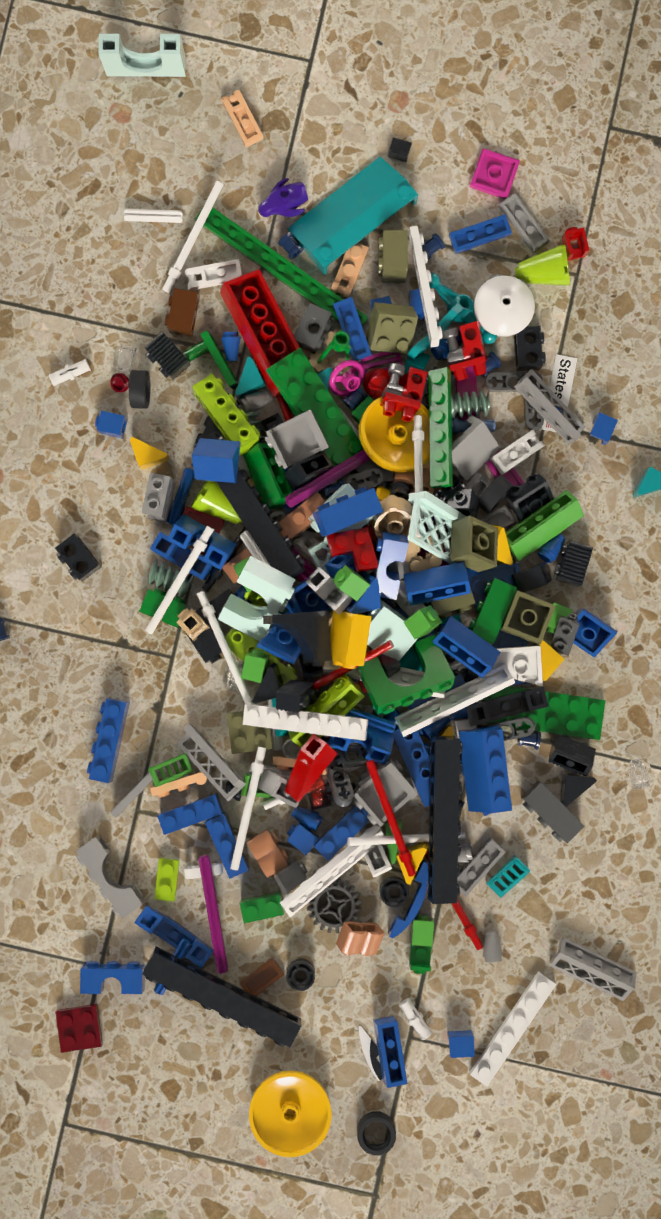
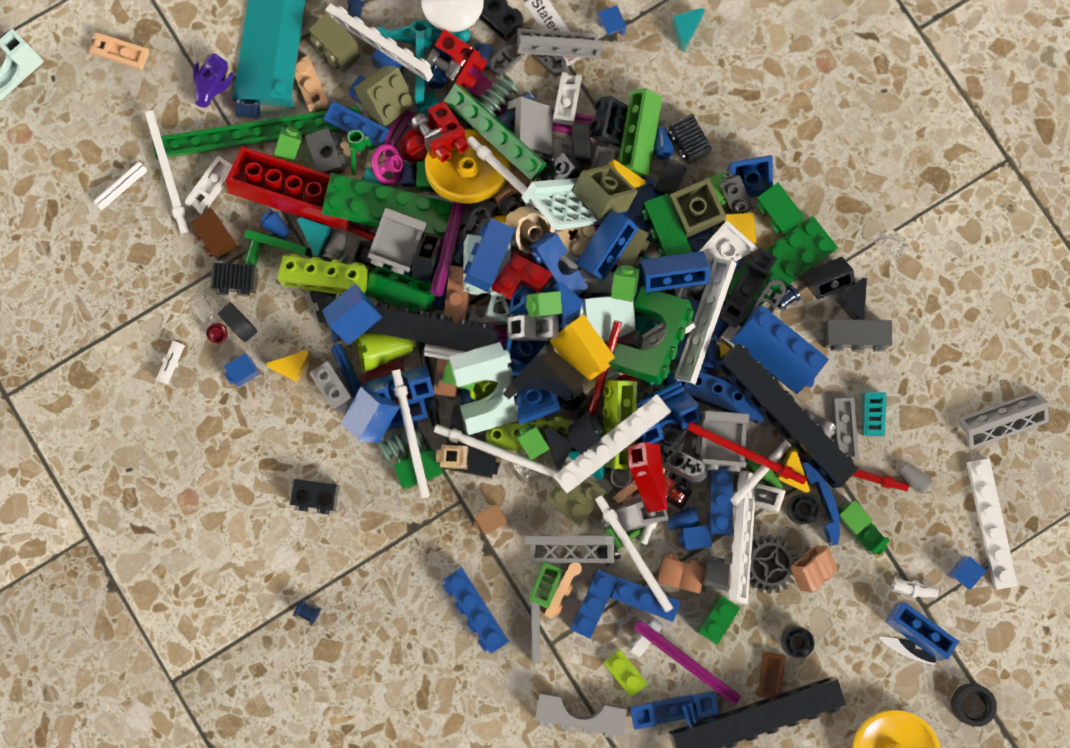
camera: 45 degrees left, 5 degrees down
(162, 541) = (369, 416): none -> slope
(177, 689) = (490, 520): none -> medium nougat brick
(292, 297) = (287, 144): none -> bright green brick
(584, 675) = (780, 209): none -> green brick

